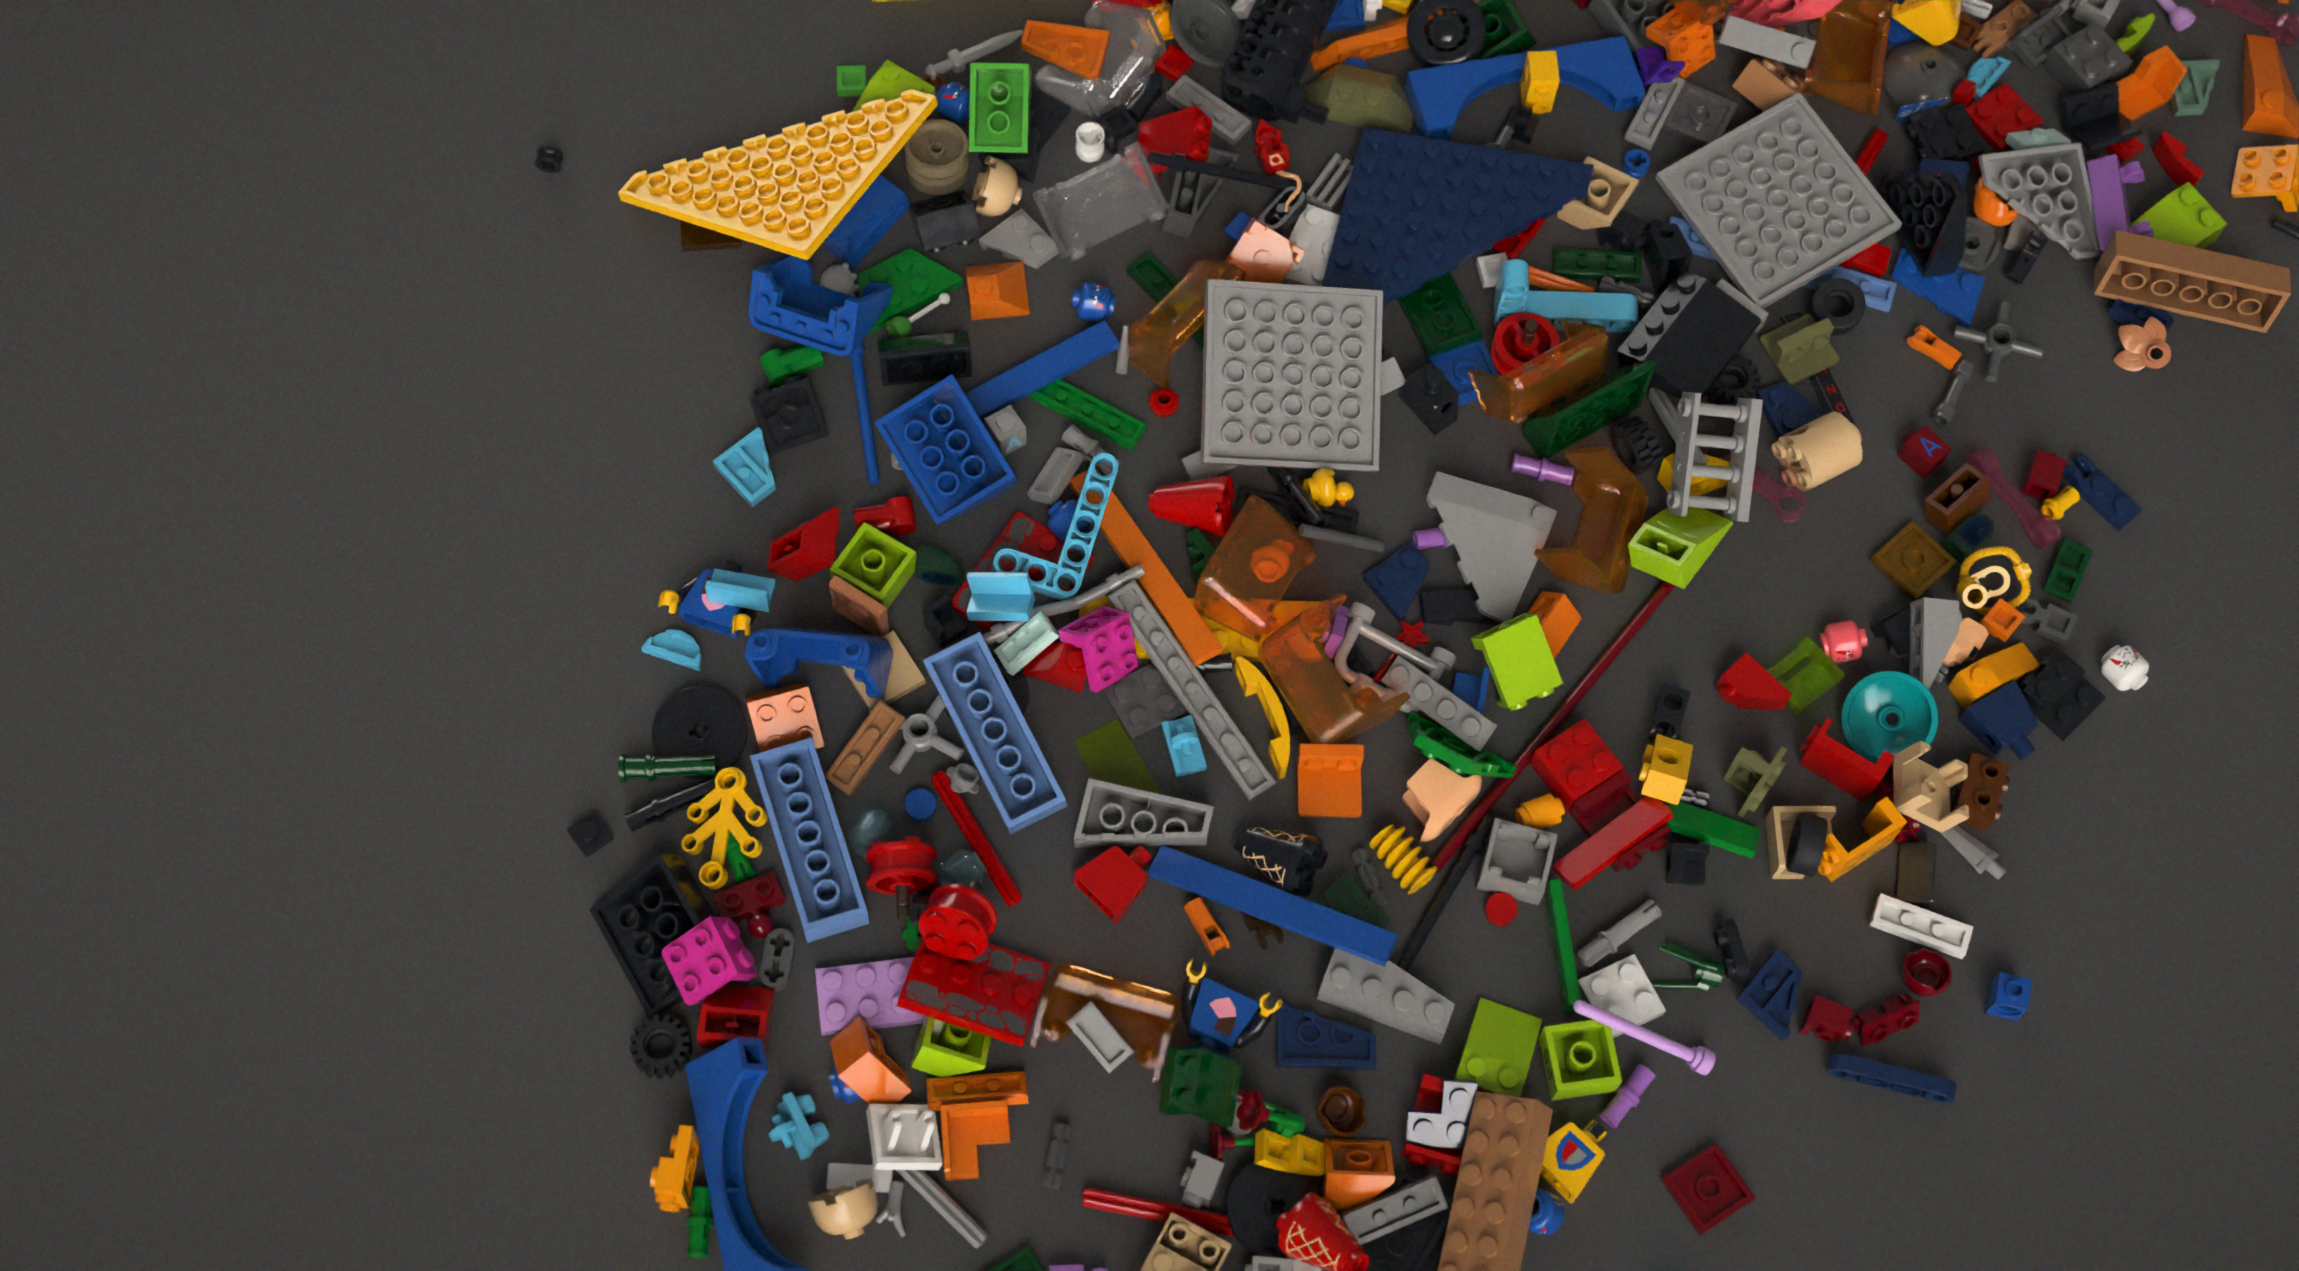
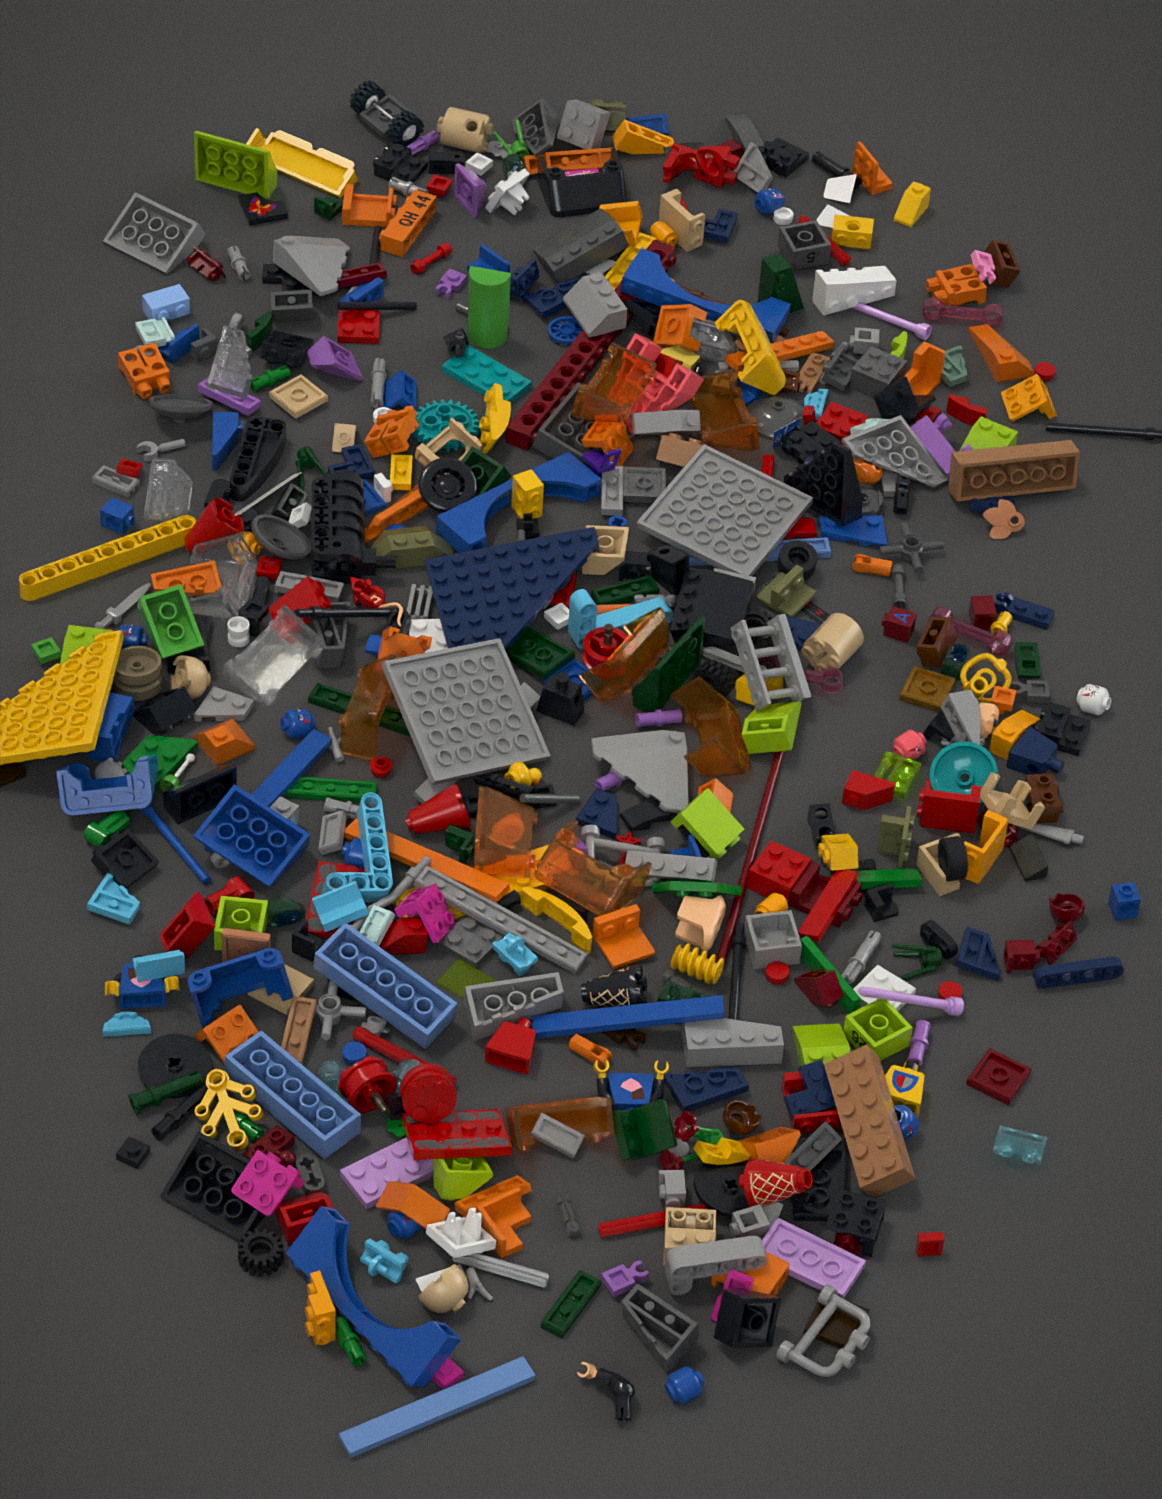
camera: 25 degrees left, 20 degrees down
(1541, 957) = (820, 987): none -> dark red slope
(1708, 1033) = (949, 989): none -> red tile
(1921, 926) = (1048, 884): white plate -> none

